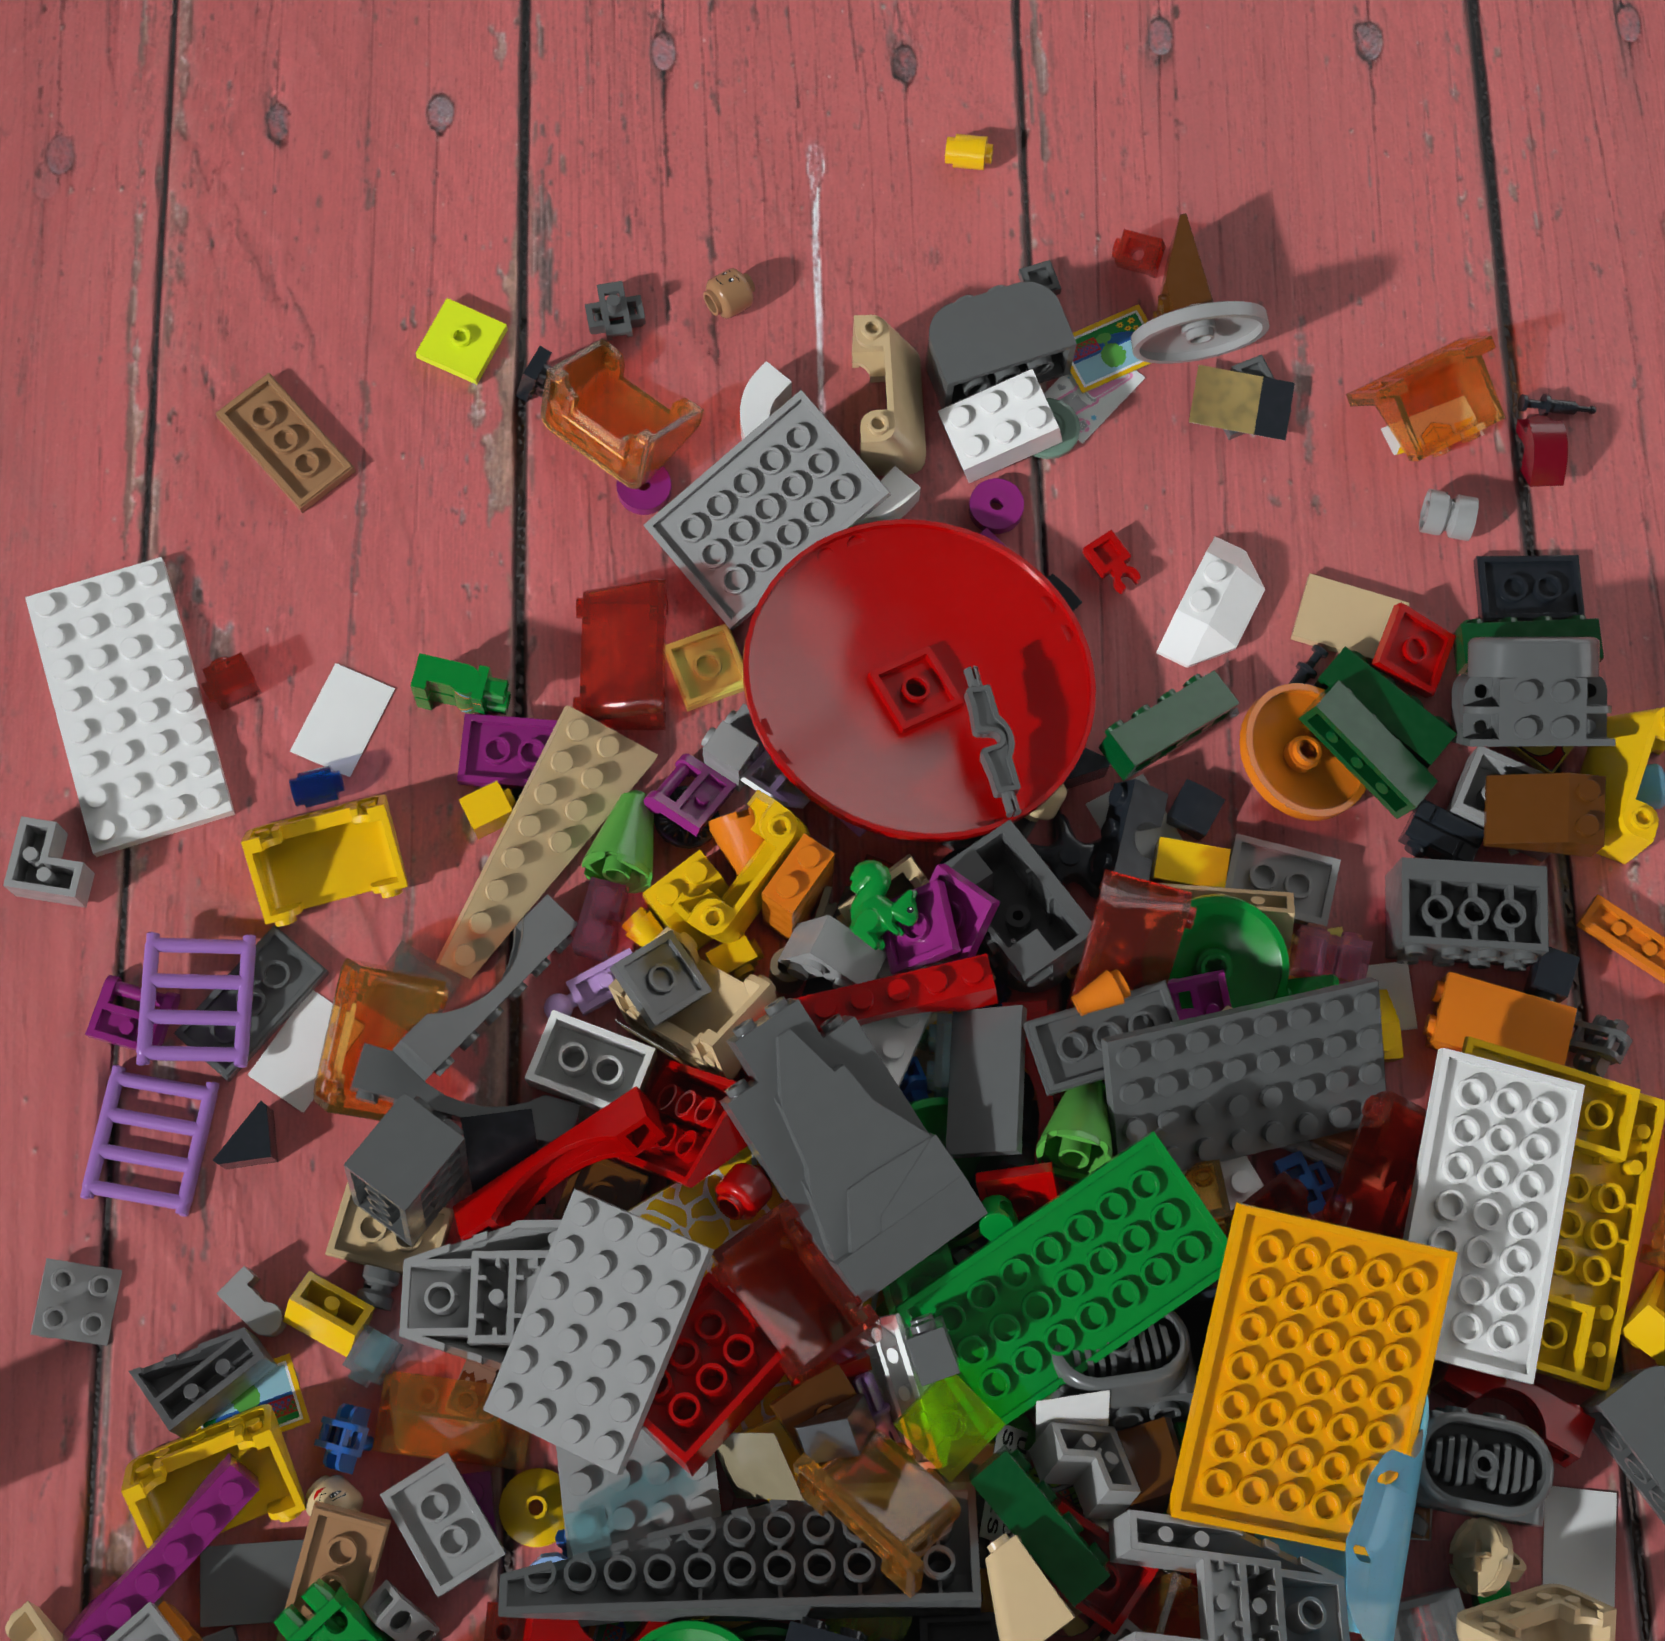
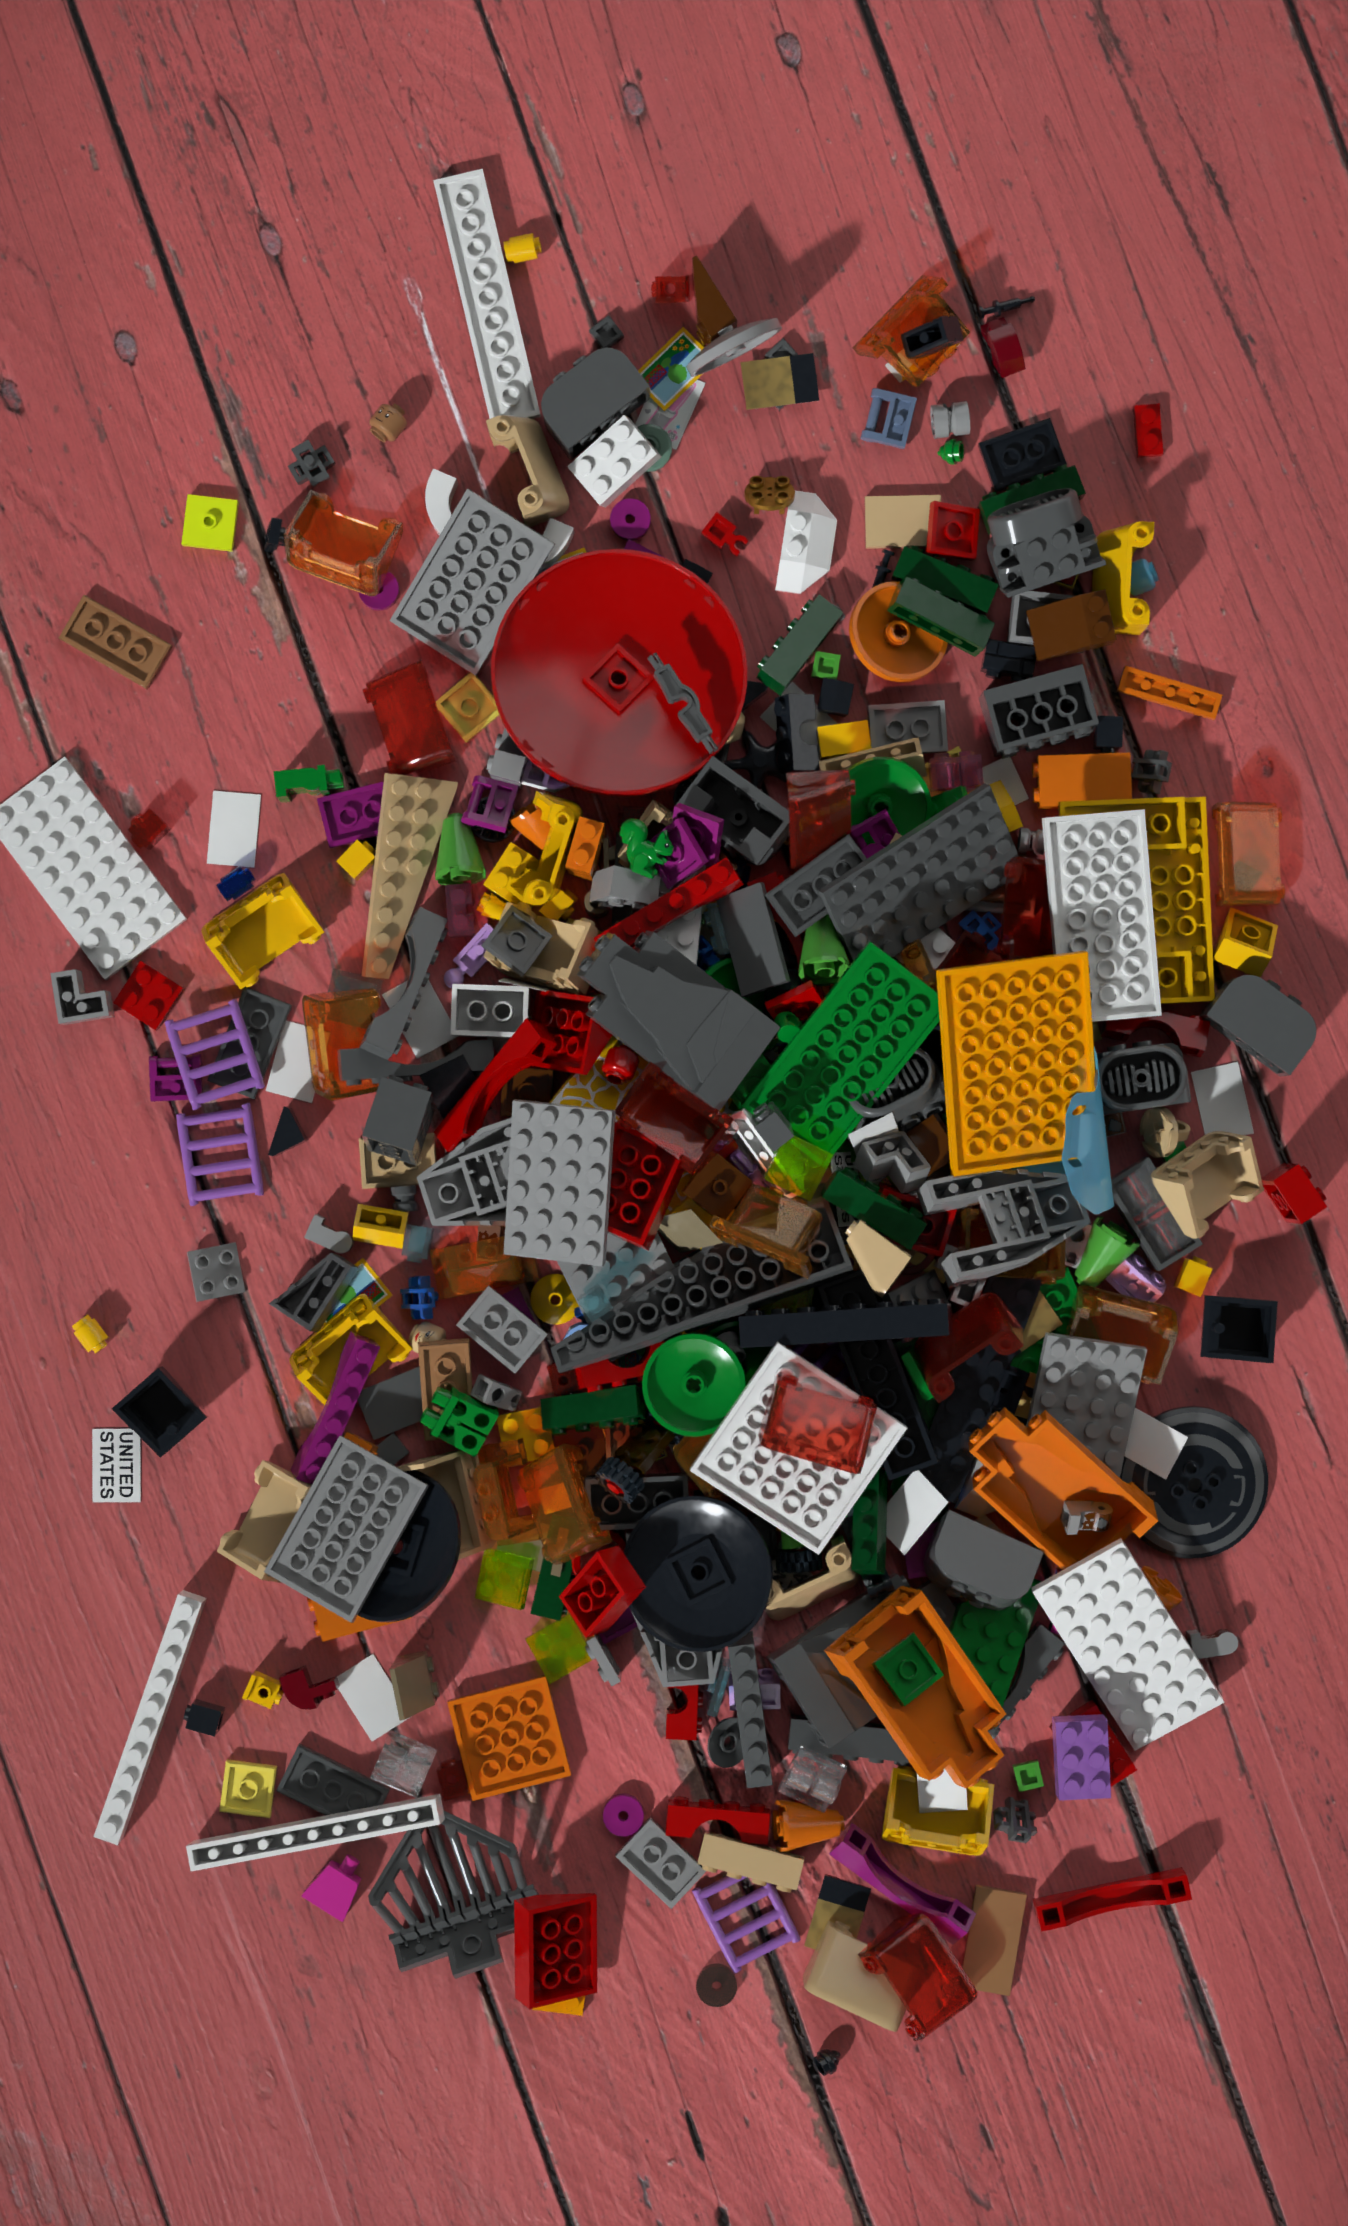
camera: 15 degrees left, 15 degrees up
(142, 895) = (148, 995): none -> red plate
(501, 1054) = (429, 1022): none -> white sticker
(837, 1431) = (730, 1194): black slope -> none
(906, 188) = (486, 295): none -> white plate
(1102, 993) = (809, 859): orange cone -> none
(1187, 529) = (769, 493): none -> pearl gold plate
(1194, 765) = (825, 665): none -> bright green plate
(1377, 497) = (897, 419): none -> sand blue plate
(1408, 1083) = (1037, 841): none -> light grey wheel
(1439, 555) = (952, 451): none -> green plate
(1456, 405) = (932, 337): none -> black brick

